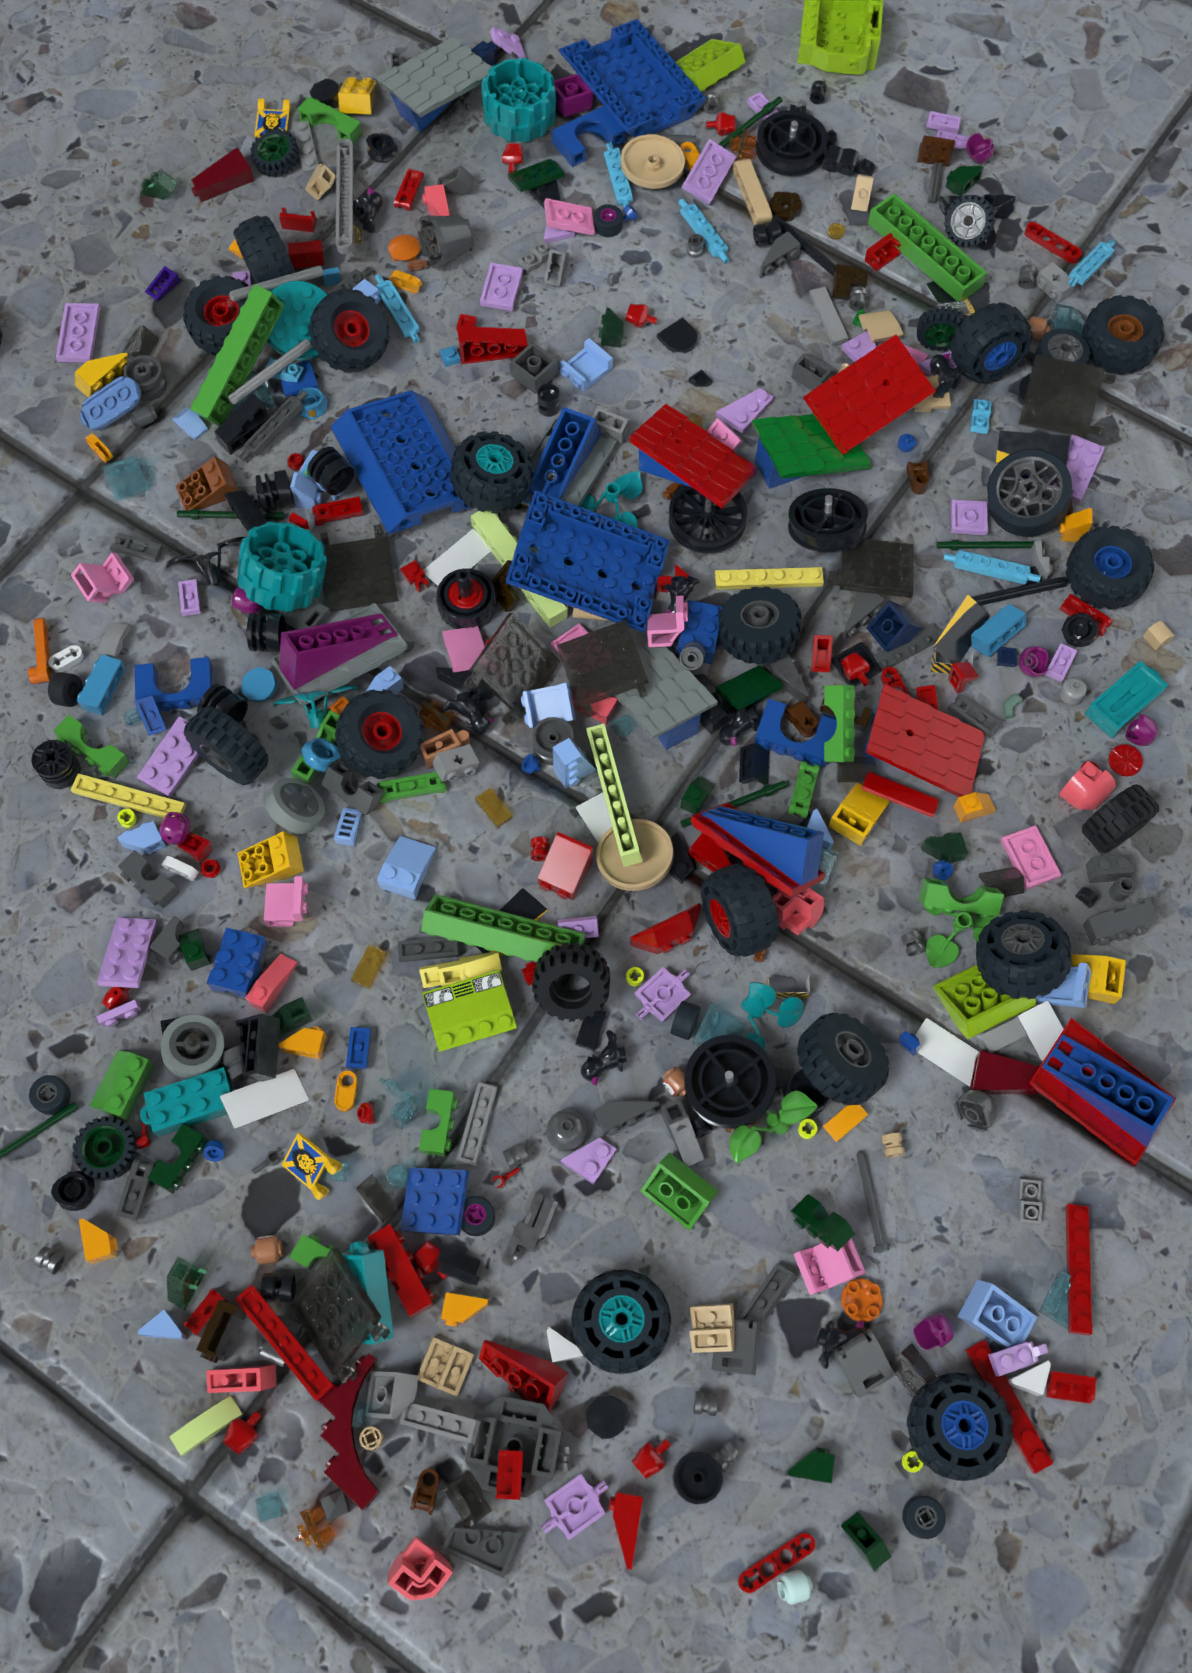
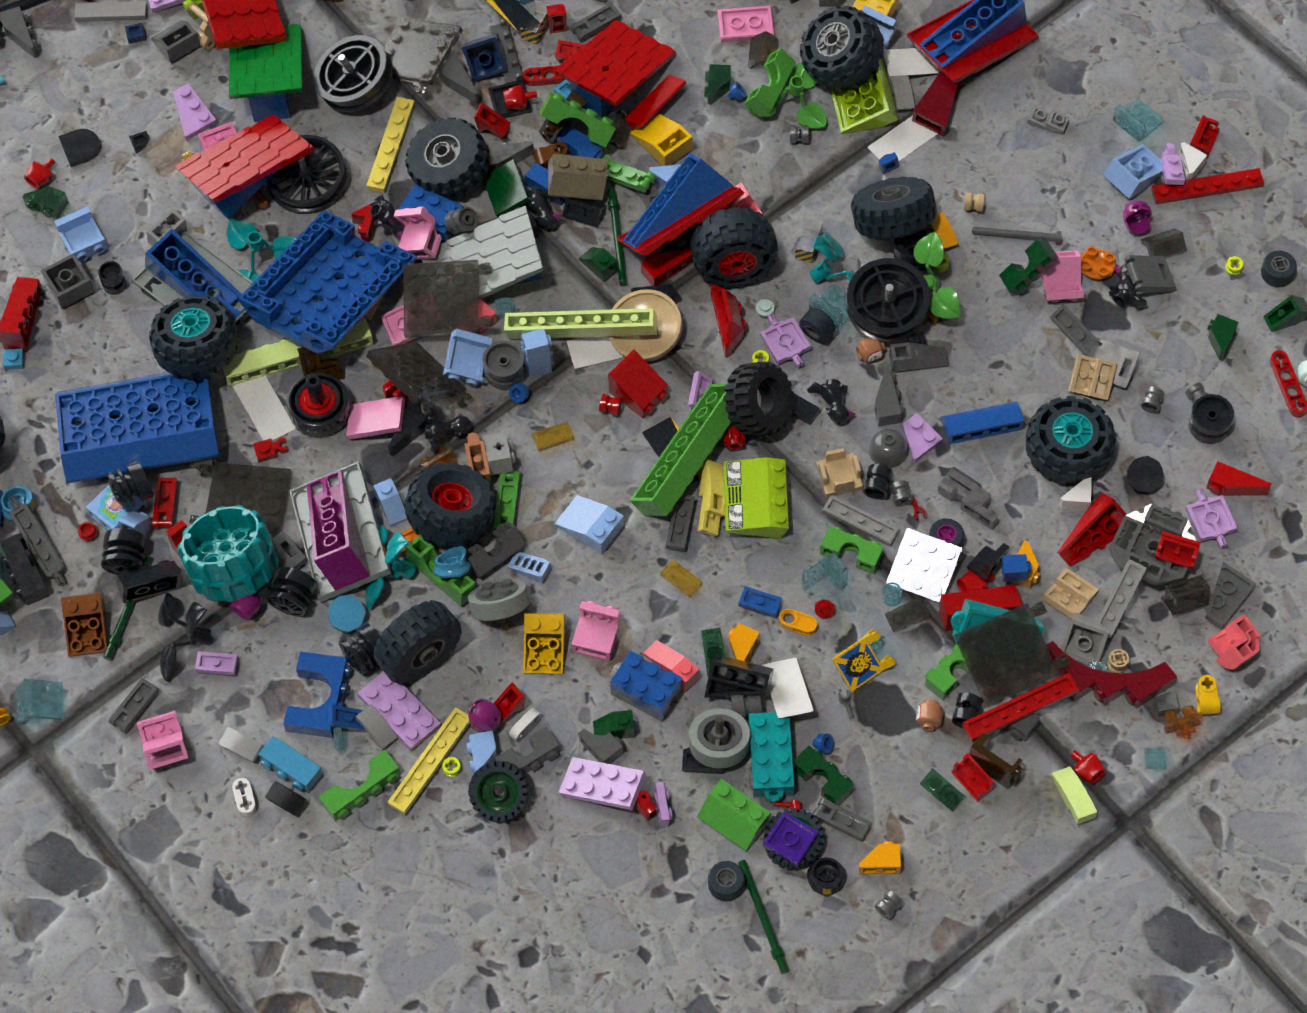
camera: 70 degrees left, 5 degrees down
(42, 672) = (252, 820): orange beam -> none
(55, 764) = (371, 829): black wheel -> none
(96, 1143) = (790, 839): none -> dark purple tile
(100, 862) = (483, 795): none -> wheel
(149, 741) = (377, 727): none -> light grey slope
(163, 1326) = (976, 814): light blue slope -> none
(210, 863) = (533, 693): red plate -> none
(241, 1379) = (1040, 758): coral slope -> none
(348, 1552) = (1207, 699): none -> yellow piece
(426, 1492) = (1172, 629): reddish brown piece -> none
(445, 1297) = (1015, 567): none -> blue brick
(521, 1128) = (877, 481): none -> black wheel
(523, 1087) = (839, 473): none -> tan panel
(626, 1220) = (982, 422): none -> blue brick
(650, 1459) = (1186, 454): red piece -> none
(679, 1191) = (968, 373): bright green slope -> none
(695, 965) = (764, 308): none -> light aqua plate
(777, 744) = (577, 177): none -> dark tan slope
(812, 341) = (135, 33): none -> dark blue tile
(936, 1430) = (1217, 218): black wheel -> none
(973, 806) = (685, 51): light orange slope -> none
(977, 1109) = (962, 130): dark grey cylinder -> none
(1079, 1268) = (1110, 100): red plate -> none

